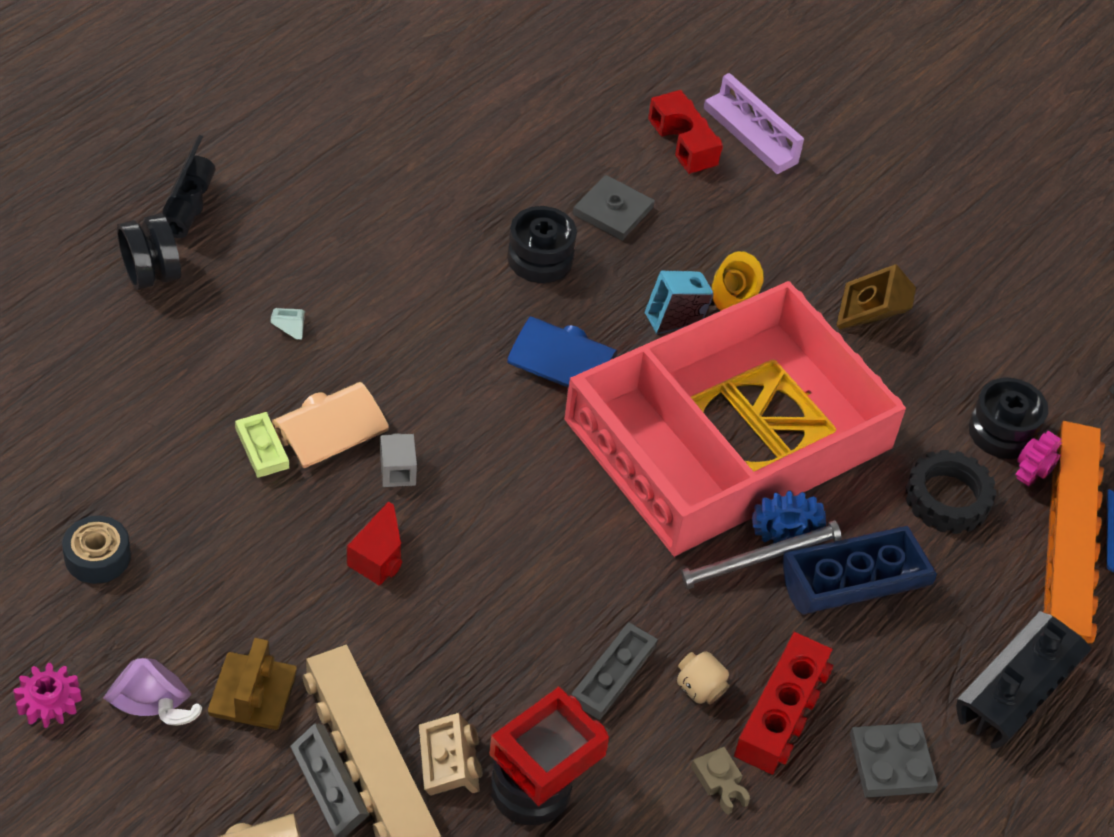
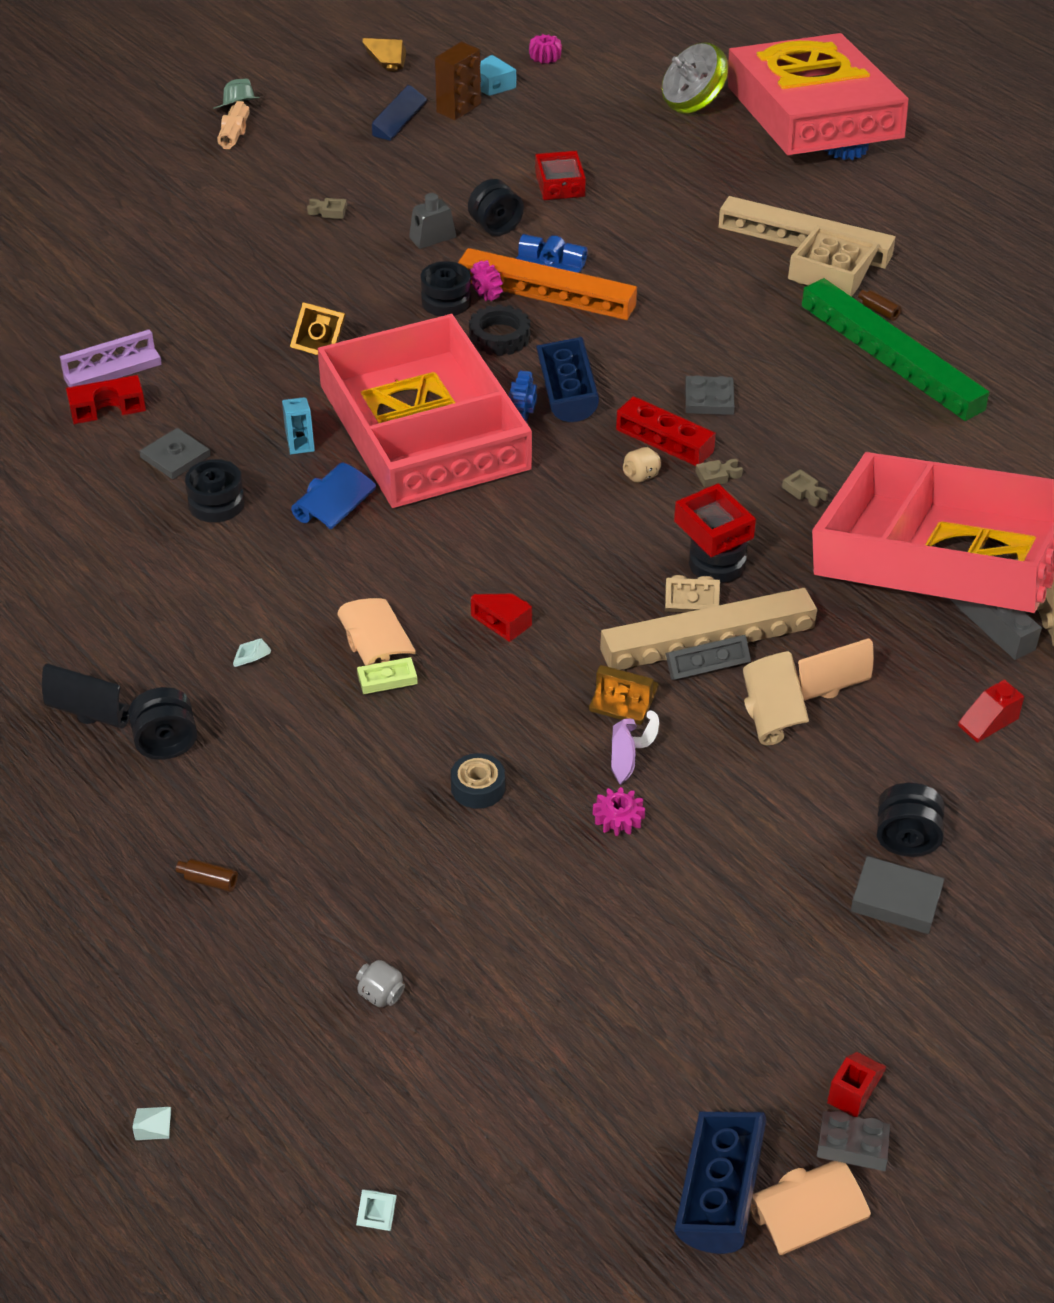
camera: 75 degrees left, 5 degrees down
(398, 460) = (420, 596): light grey brick -> none
(614, 670) = (629, 507): dark grey plate -> none
(737, 280) = (282, 389): yellow piece -> none
(762, 554) = (553, 461): flat silver bar -> none
(1022, 677) = (667, 319): black piece -> none

